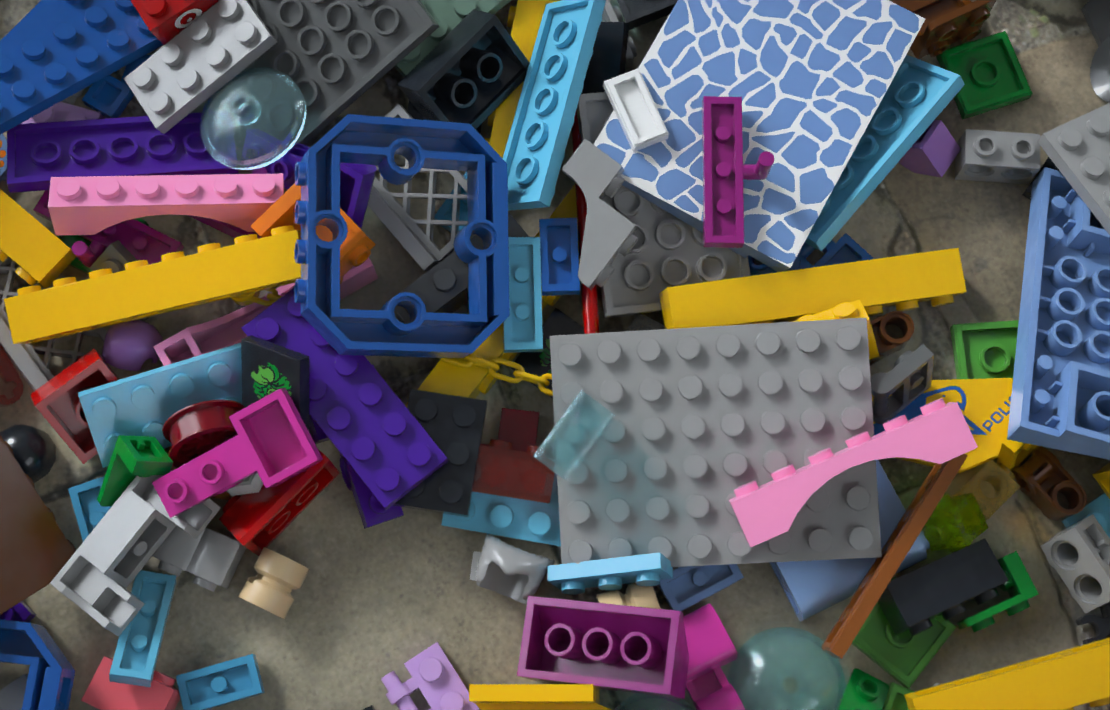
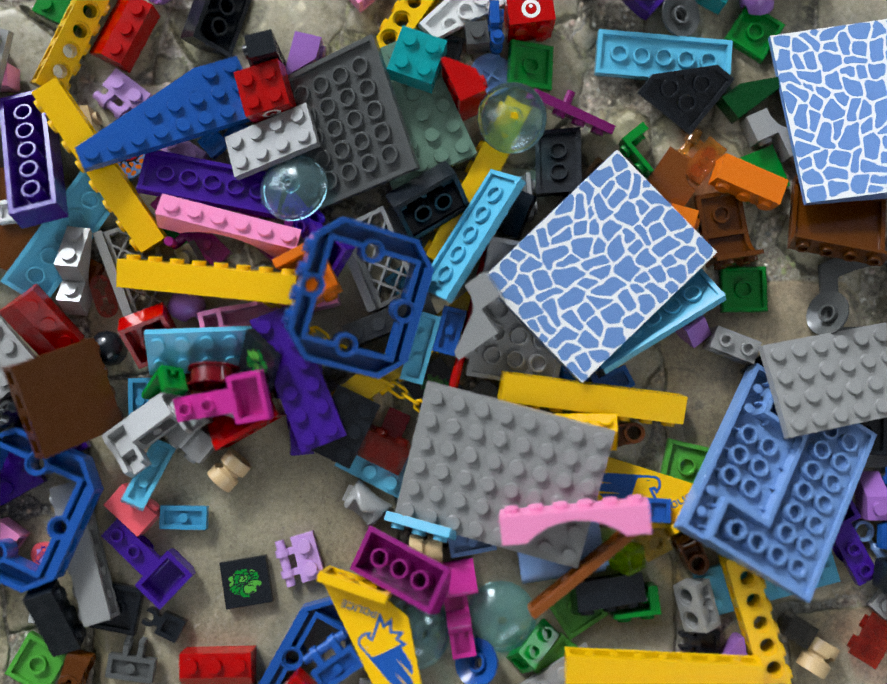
camera: 15 degrees right, 10 degrees up
(574, 435) = (421, 449): clear light blue brick -> none
(635, 110) = (521, 258): white tile -> none
(725, 172) = (562, 314): magenta plate -> none
(905, 382) = (630, 467): dark grey plate -> none
(983, 429) = (660, 510): none -> blue plate

